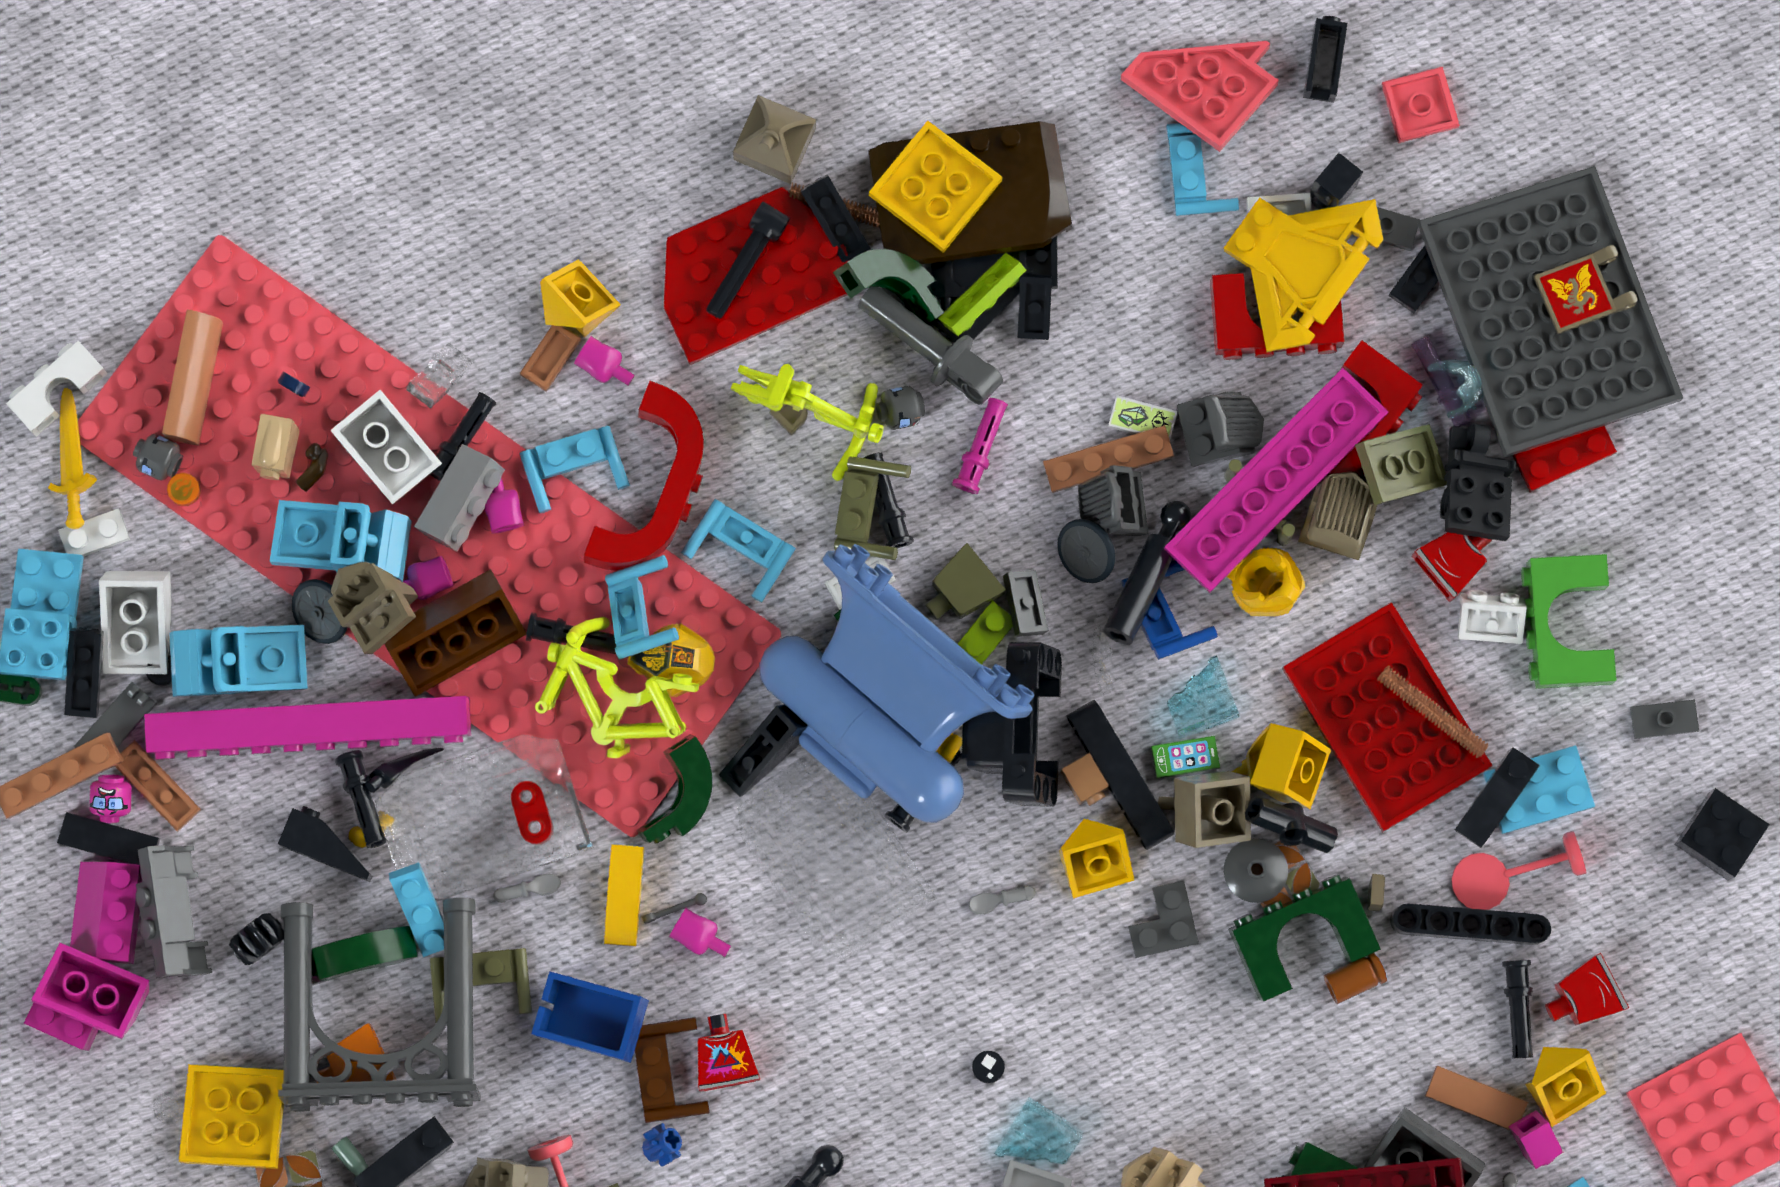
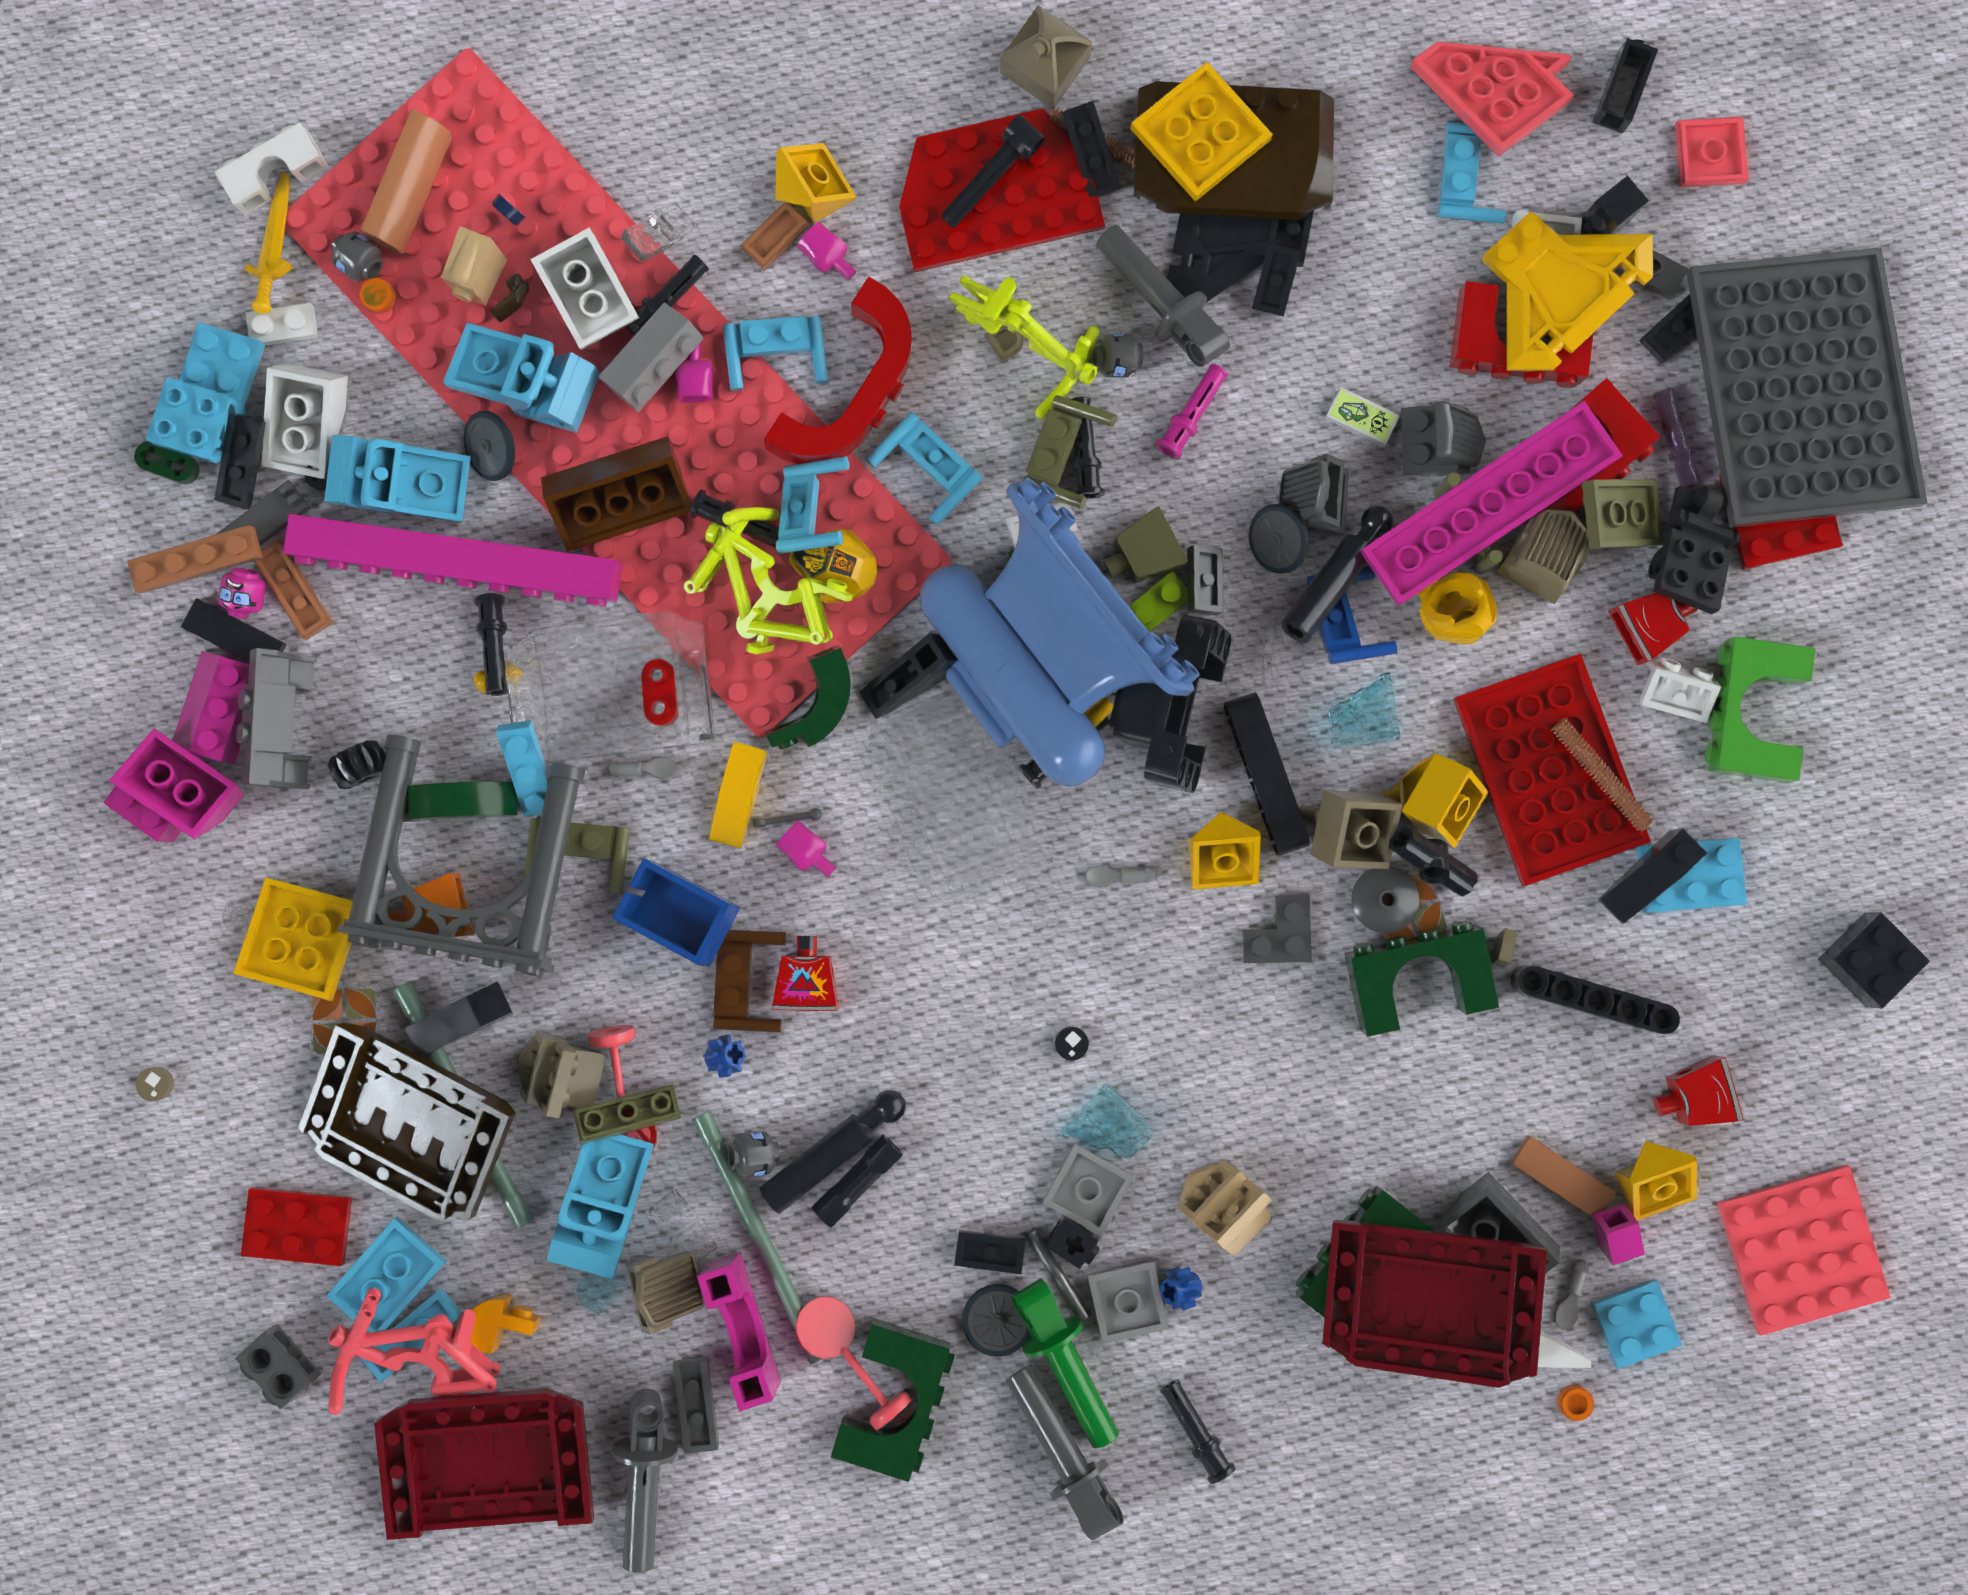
camera: 20 degrees right, 5 degrees up
(315, 839) = (441, 677): black slope -> none
(371, 604) = (536, 445): dark tan piece -> none
(388, 772) = (525, 622): black bar -> none
(429, 577) = (601, 434): dark pink piece -> none
(894, 272) = (1140, 215): arch -> none
(982, 294) = (1226, 255): lime plate -> none
(1085, 780) = (1229, 772): medium nougat brick -> none
(1128, 451) = (1349, 445): nougat plate -> none
(1185, 757) = (1336, 769): tile -> none
(1355, 978) = (1464, 1030): dark orange piece -> none
(1469, 381) = (1707, 453): clear light blue helmet -> none
(1483, 881) = (1616, 956): coral piece -> none
(1518, 993) = (1629, 1078): black pin -> none
(1578, 292) = (1842, 372): flag -> none
(1664, 719) = (1835, 829): dark grey plate -> none

